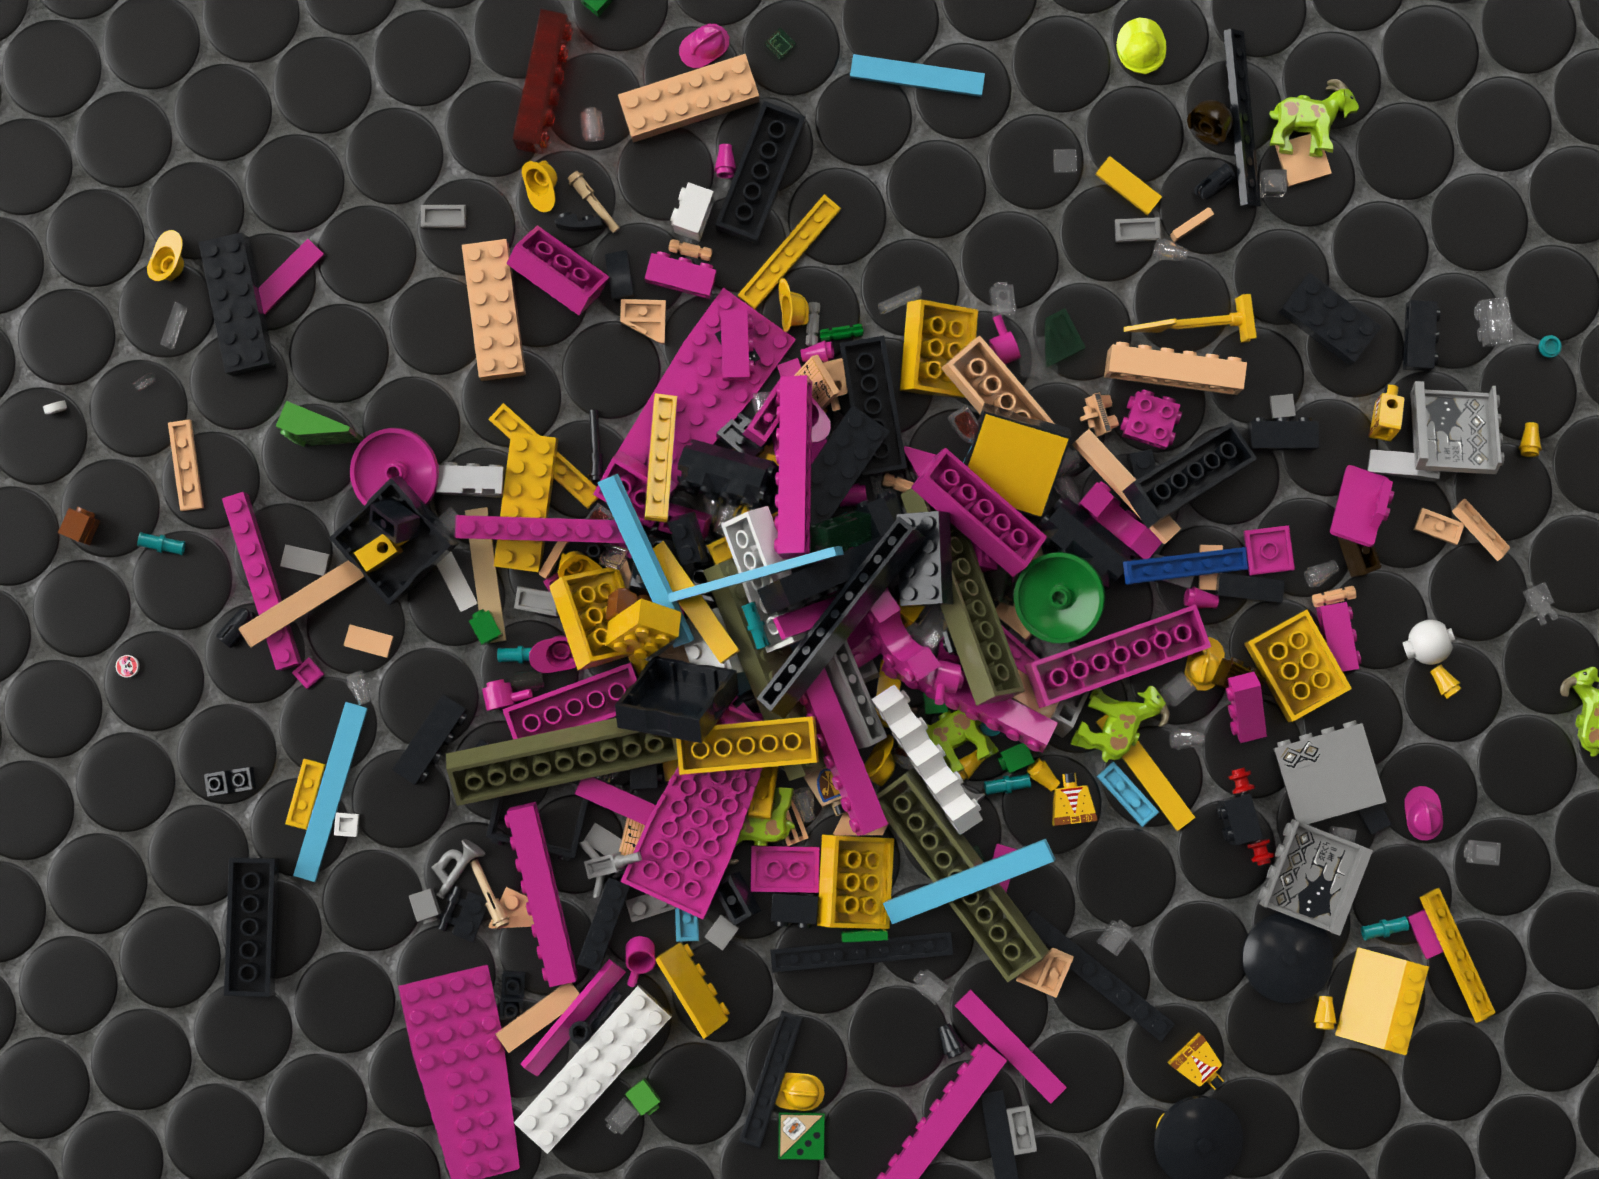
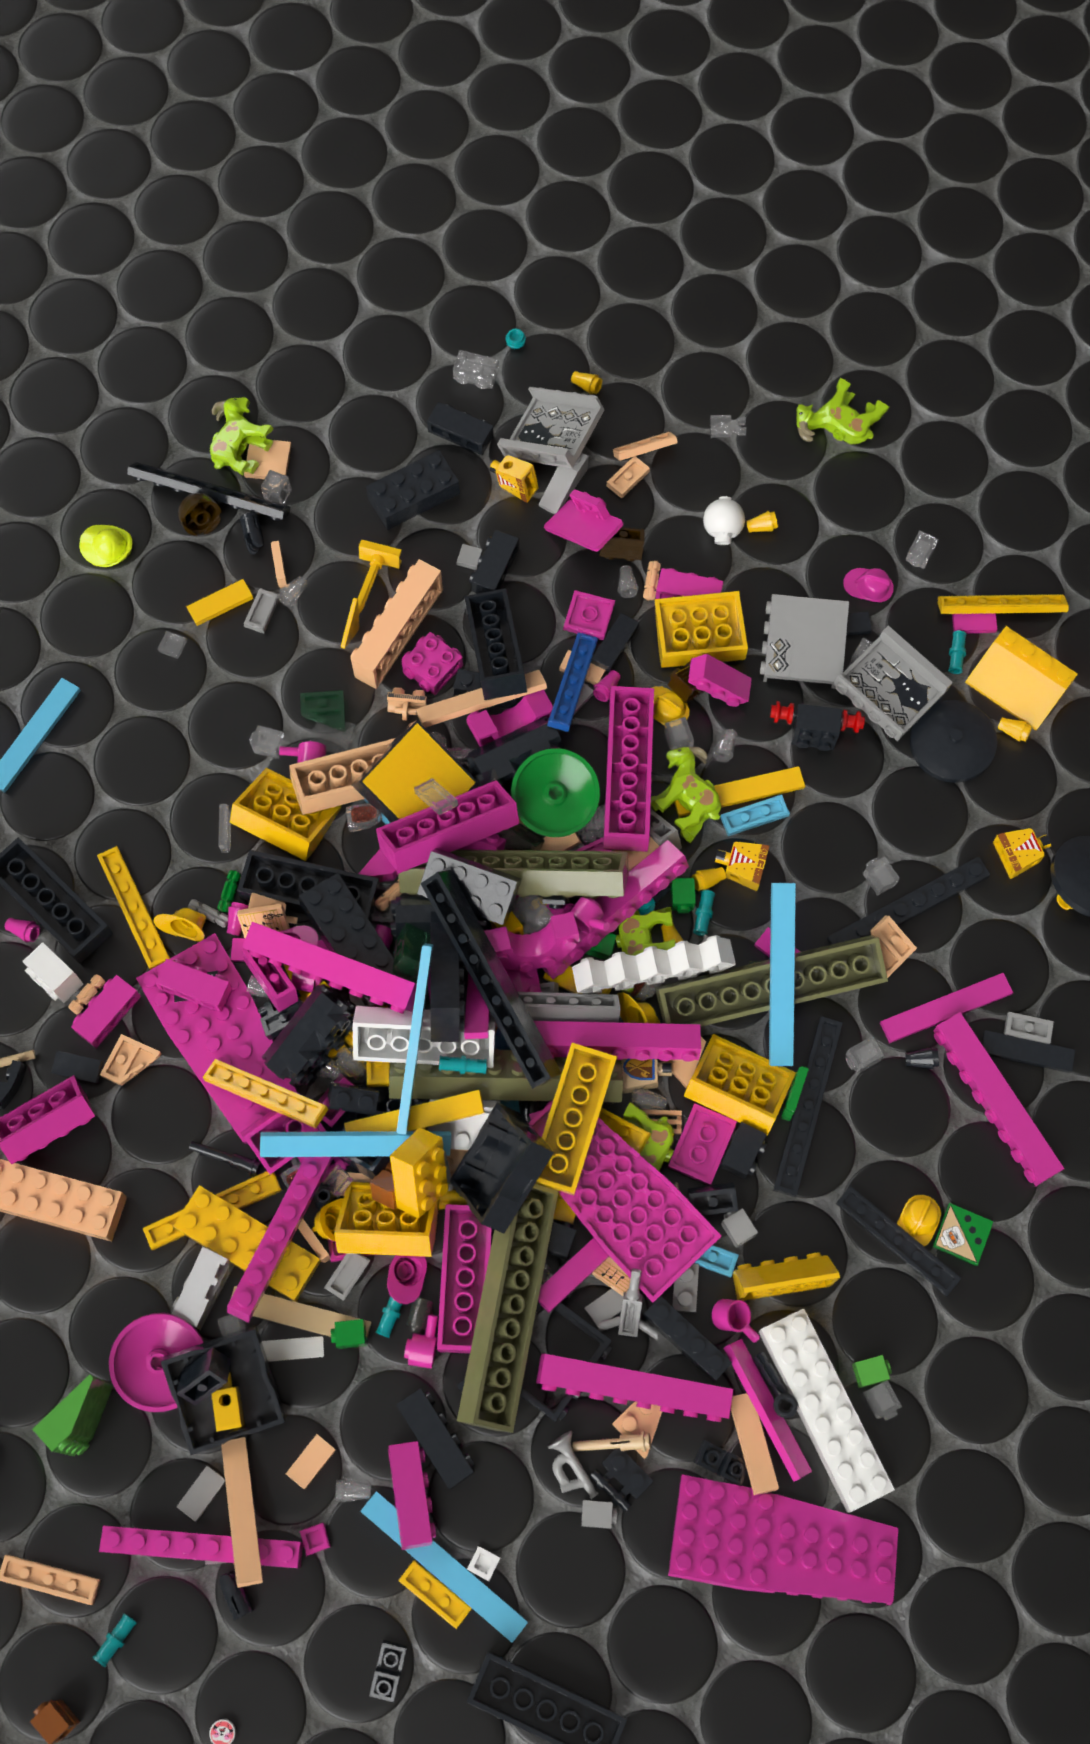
camera: 65 degrees left, 15 degrees down
(373, 739) = (410, 1495): none -> dark pink brick
(1003, 488) = (436, 796): none -> clear tile

